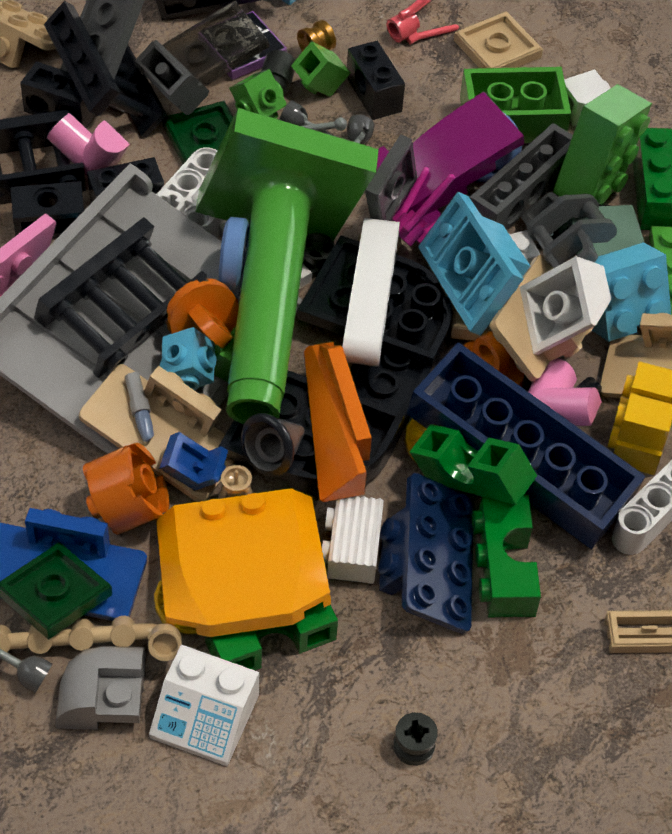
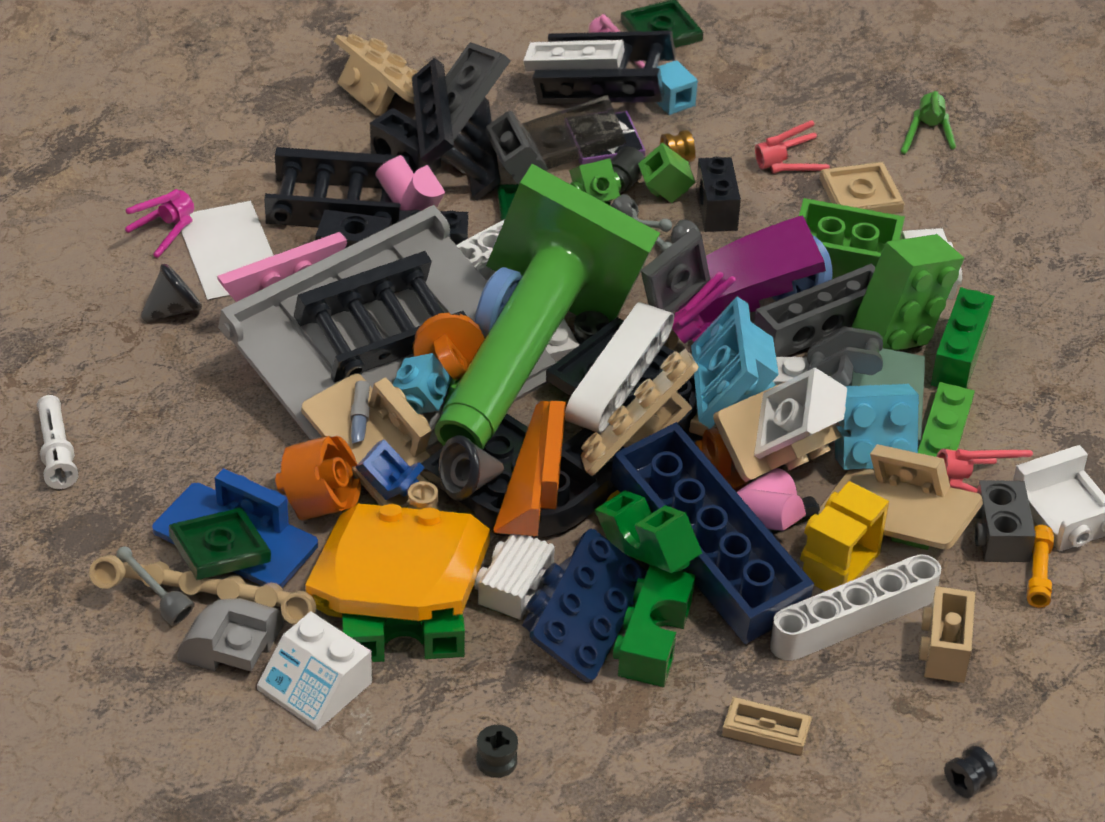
camera: 20 degrees right, 10 degrees down
(422, 341) = (652, 410): none -> tan bracket

